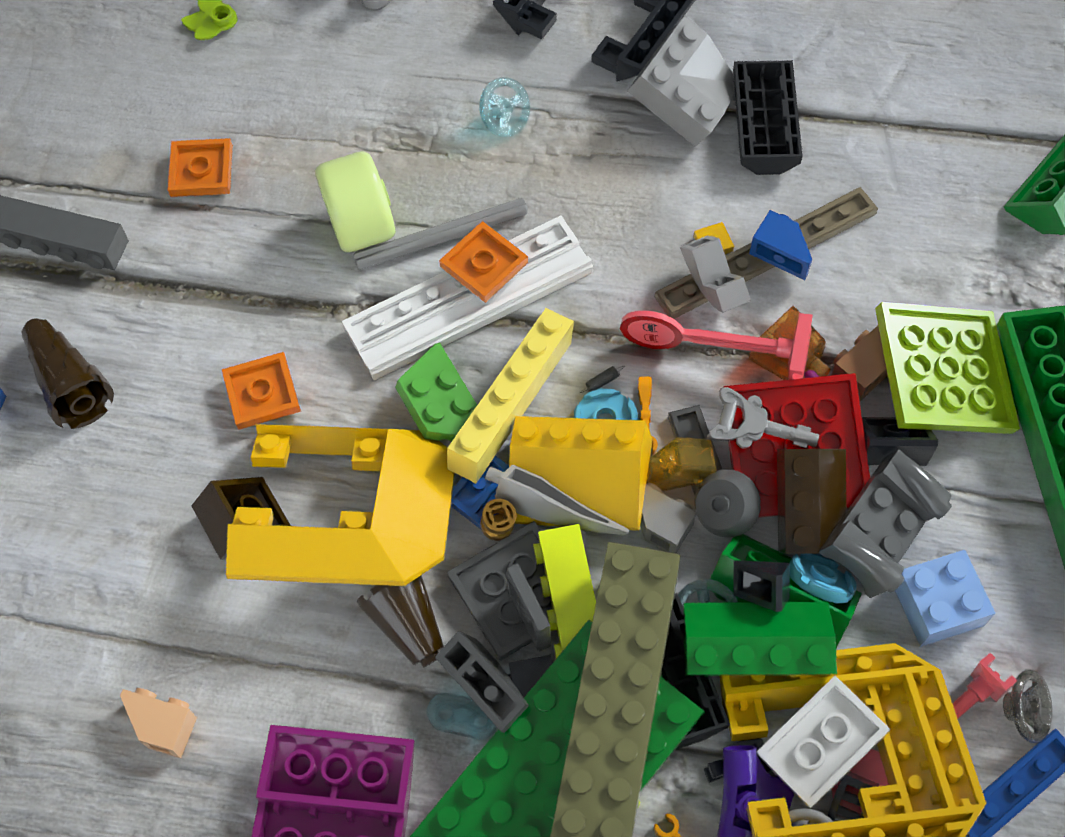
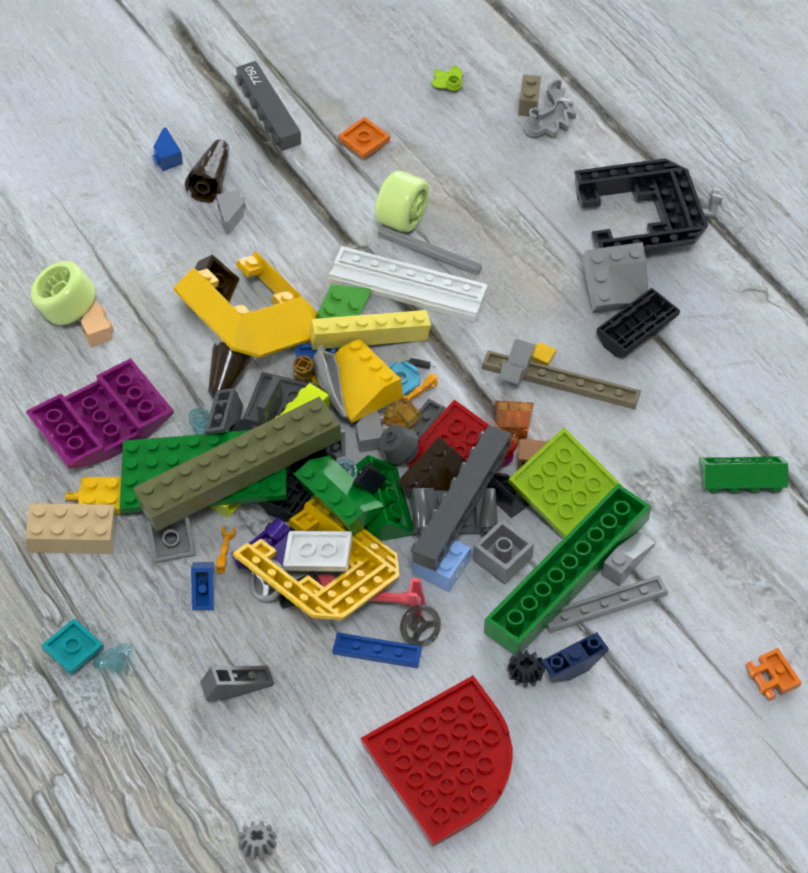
camera: 45 degrees right, 10 degrees down
(70, 727) = (63, 293): none -> yellowish green wheel
(146, 399) = (230, 209): none -> light grey slope
(261, 390) = (278, 244): orange plate -> none
(483, 261) = (426, 271): orange plate -> none
(491, 104) = (518, 207): clear light blue piece -> none
(663, 332) = (503, 415): coral piece -> none
(754, 423) = (446, 423): light grey piece -> none
(782, 245) = (564, 375): blue slope -> none
(822, 578) = (399, 505): medium azure tile -> none
(899, 503) = (461, 498): none -> dark grey brick
(992, 515) = (503, 551): none -> light grey brick

